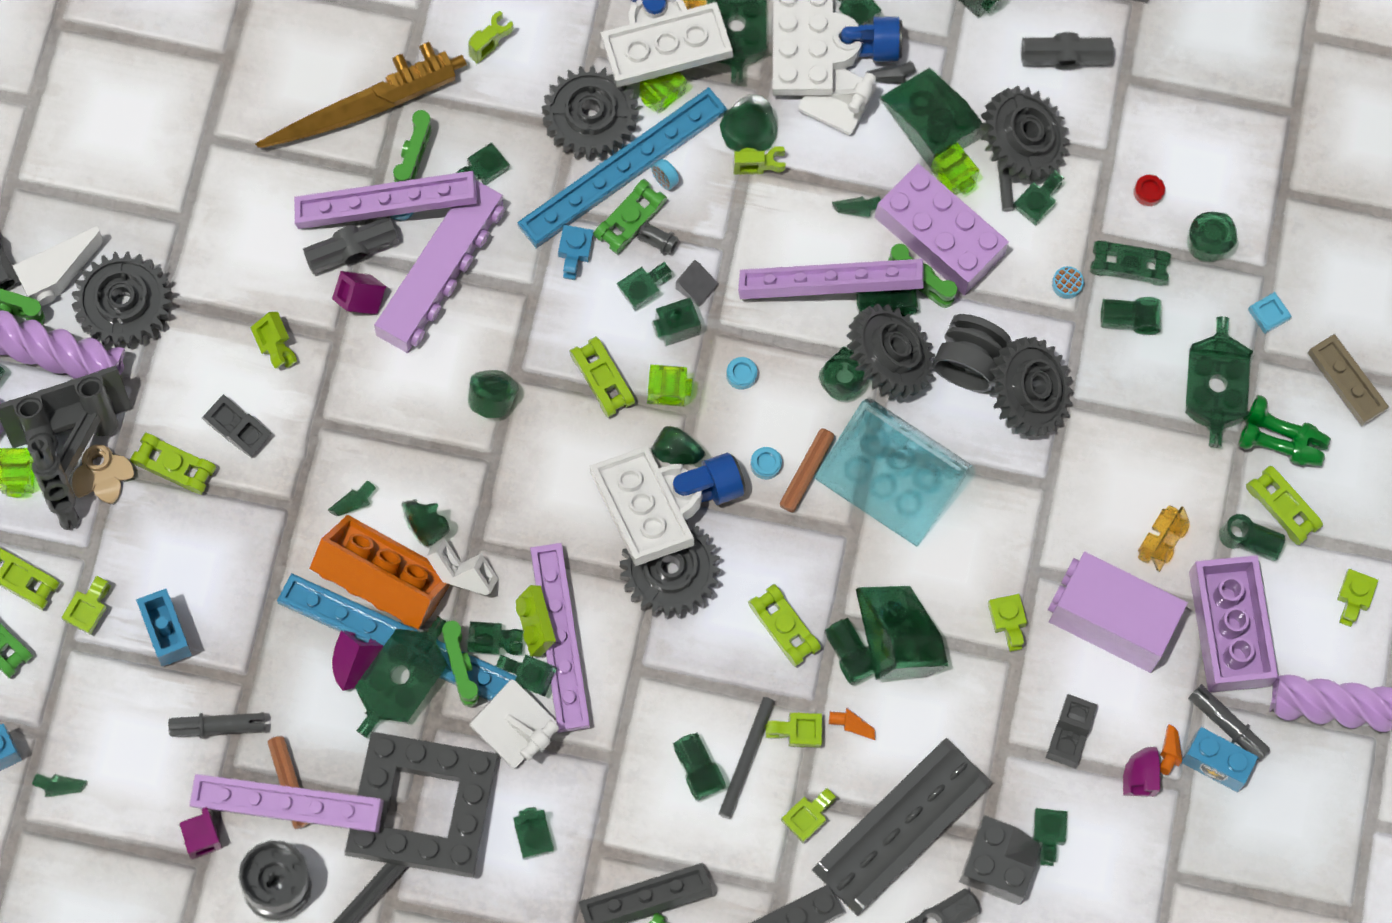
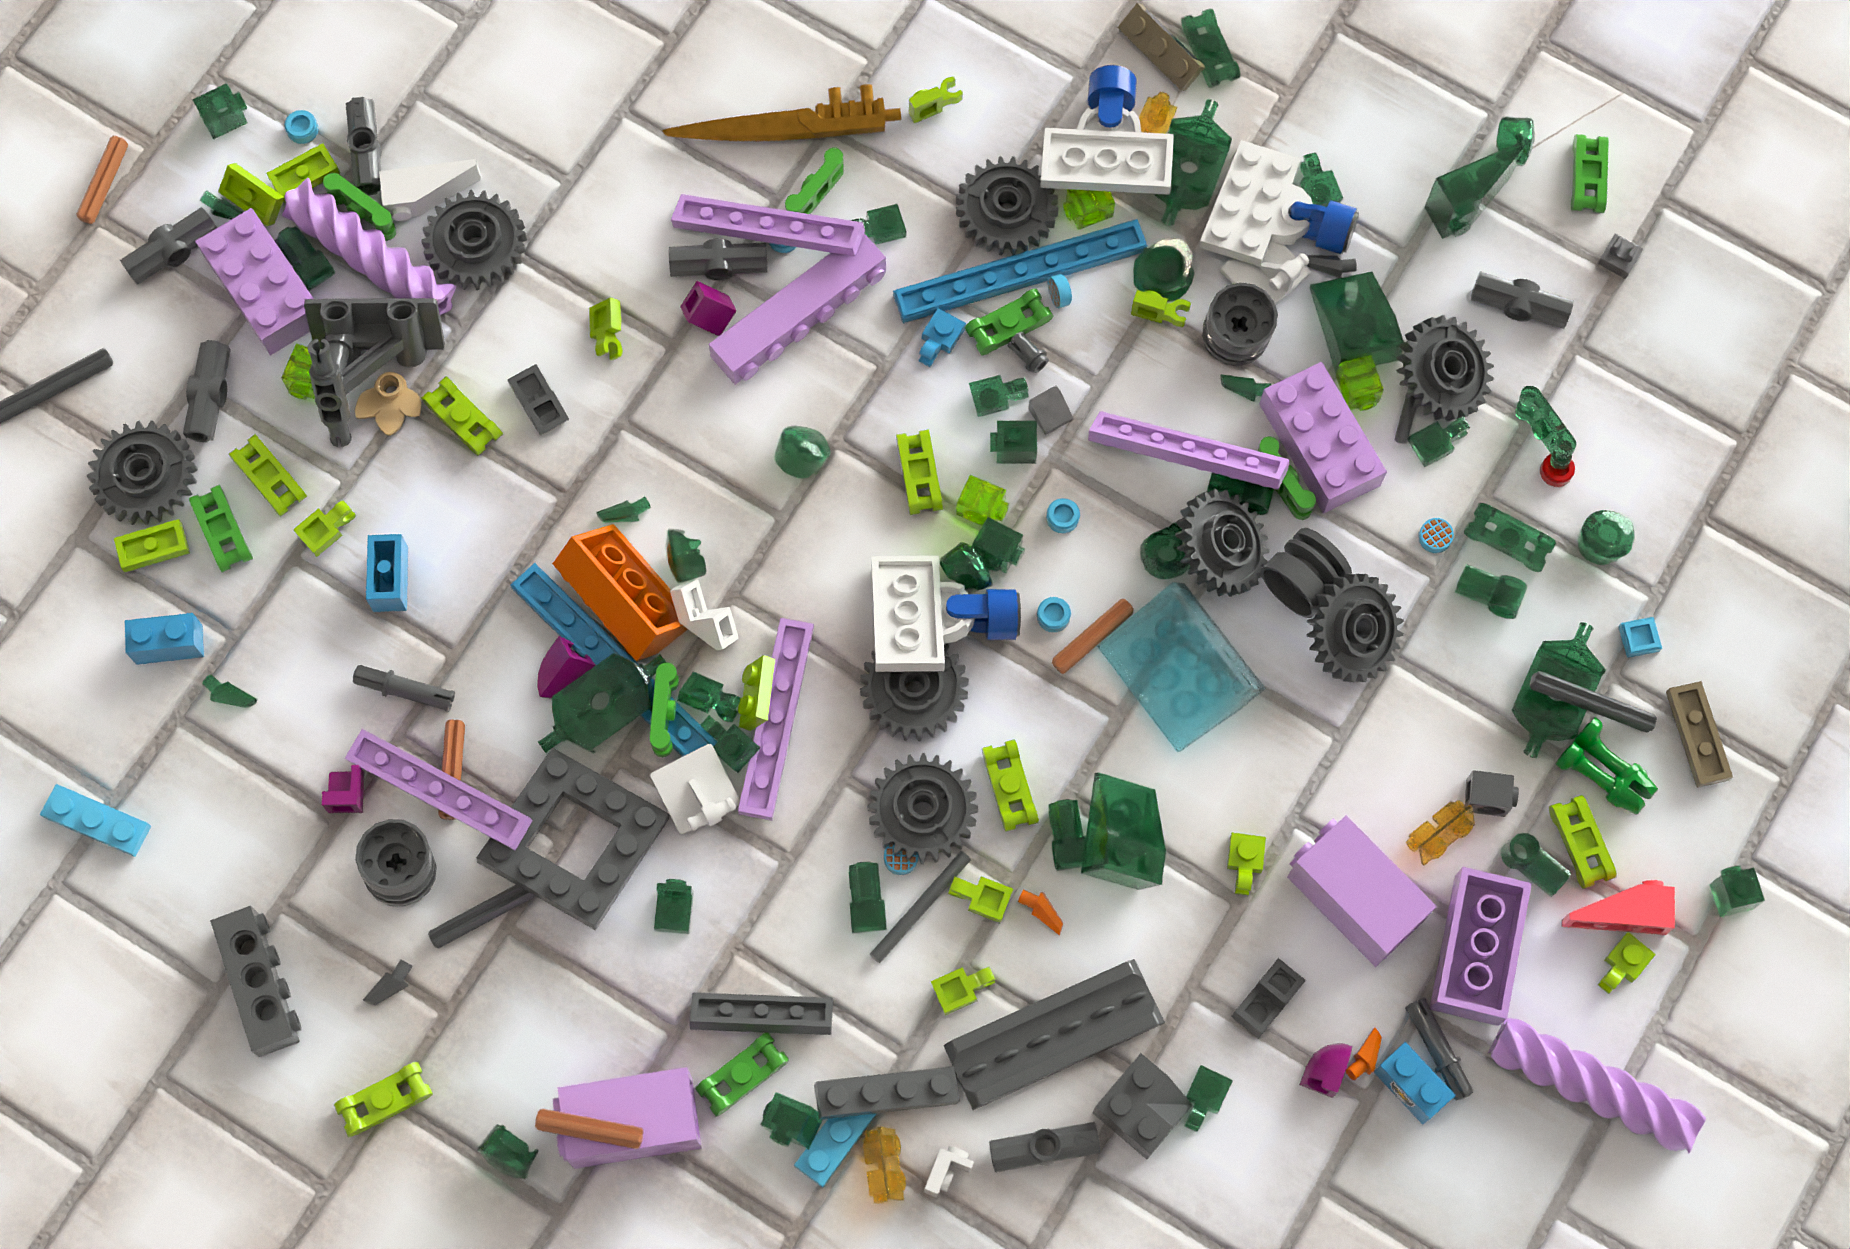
camera: 25 degrees right, 0 degrees up
(697, 418) = (999, 545): none -> clear green brick
(713, 694) = (922, 783): none -> dark grey gear
(713, 720) = (899, 864): none -> tile
(838, 137) = (1243, 307): none -> dark grey wheel
(1128, 156) = (1546, 426): none -> clear green plate
(1194, 490) = (1491, 793): none -> dark grey brick
(1251, 382) = (1593, 701): none -> dark grey axle
(1350, 547) = (1640, 909): none -> coral slope

